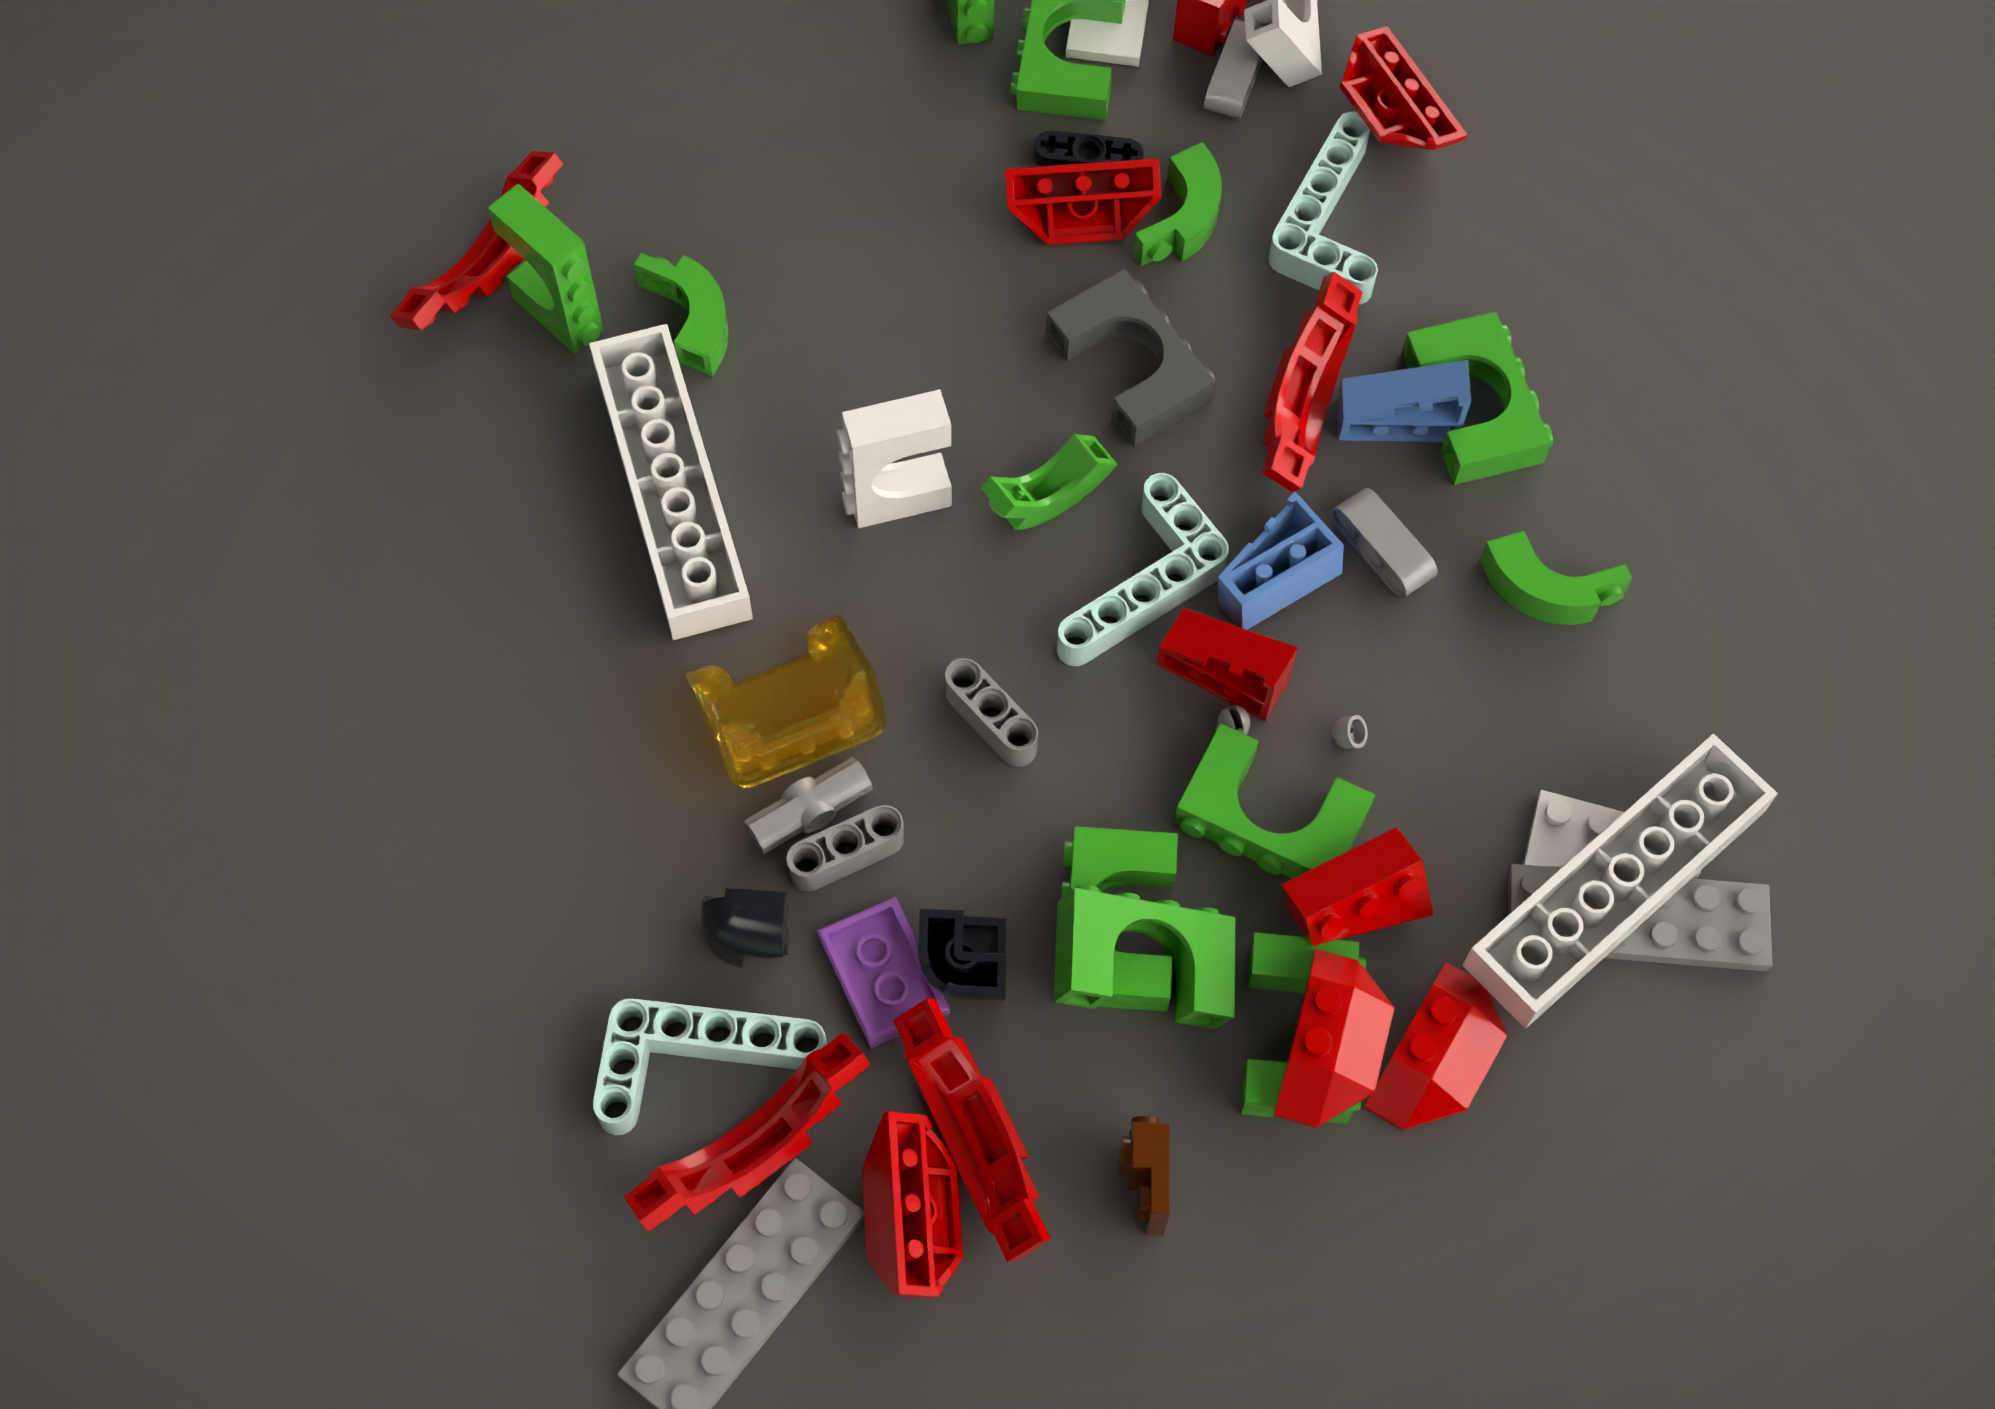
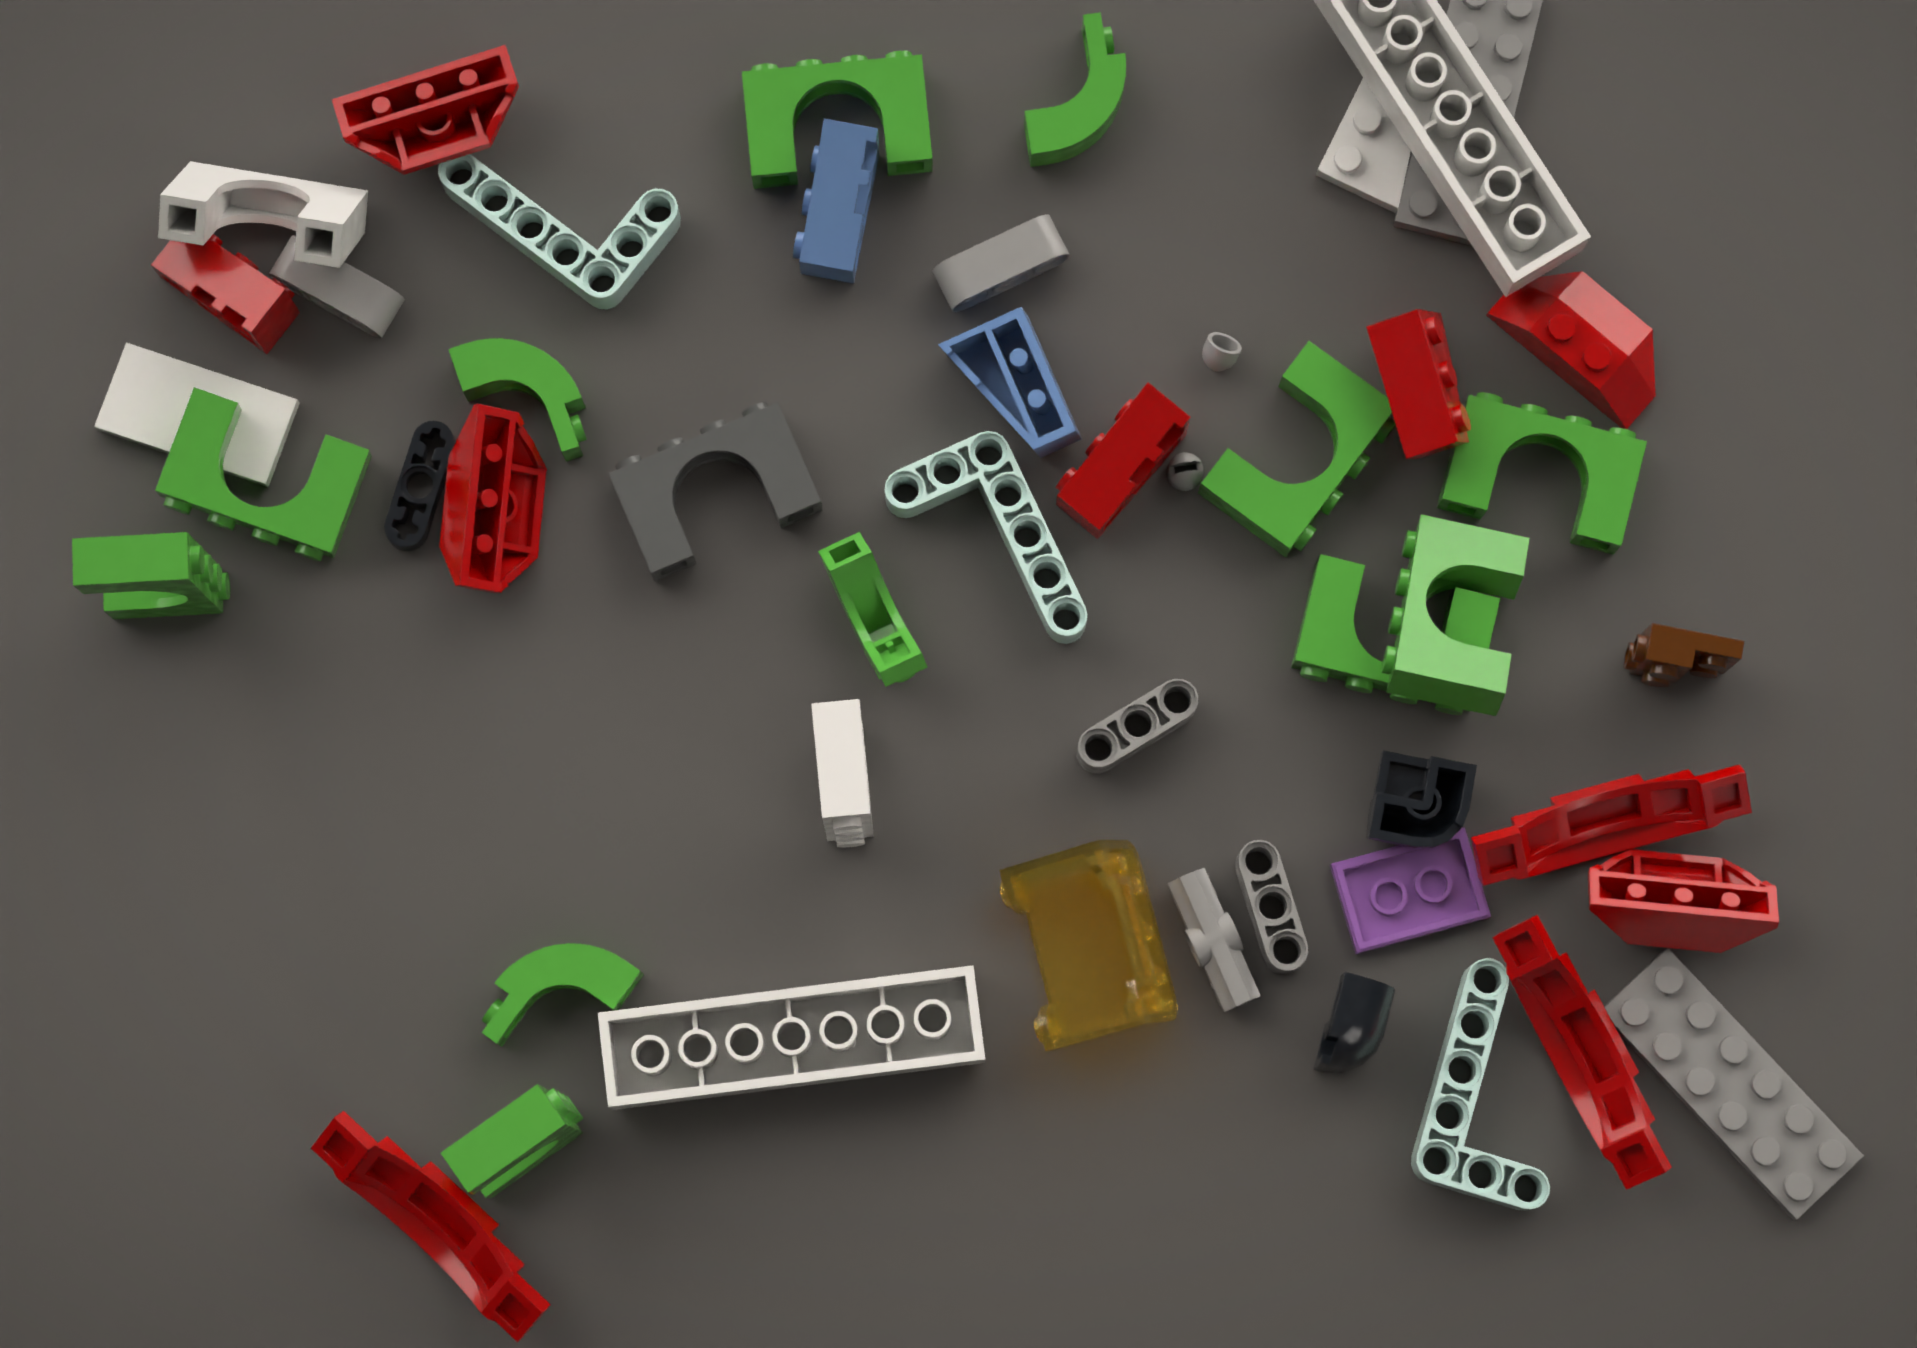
camera: 80 degrees left, 15 degrees up
(1308, 381) = (793, 306): red piece -> none
(1334, 1042) = (1575, 441): red wedge -> none

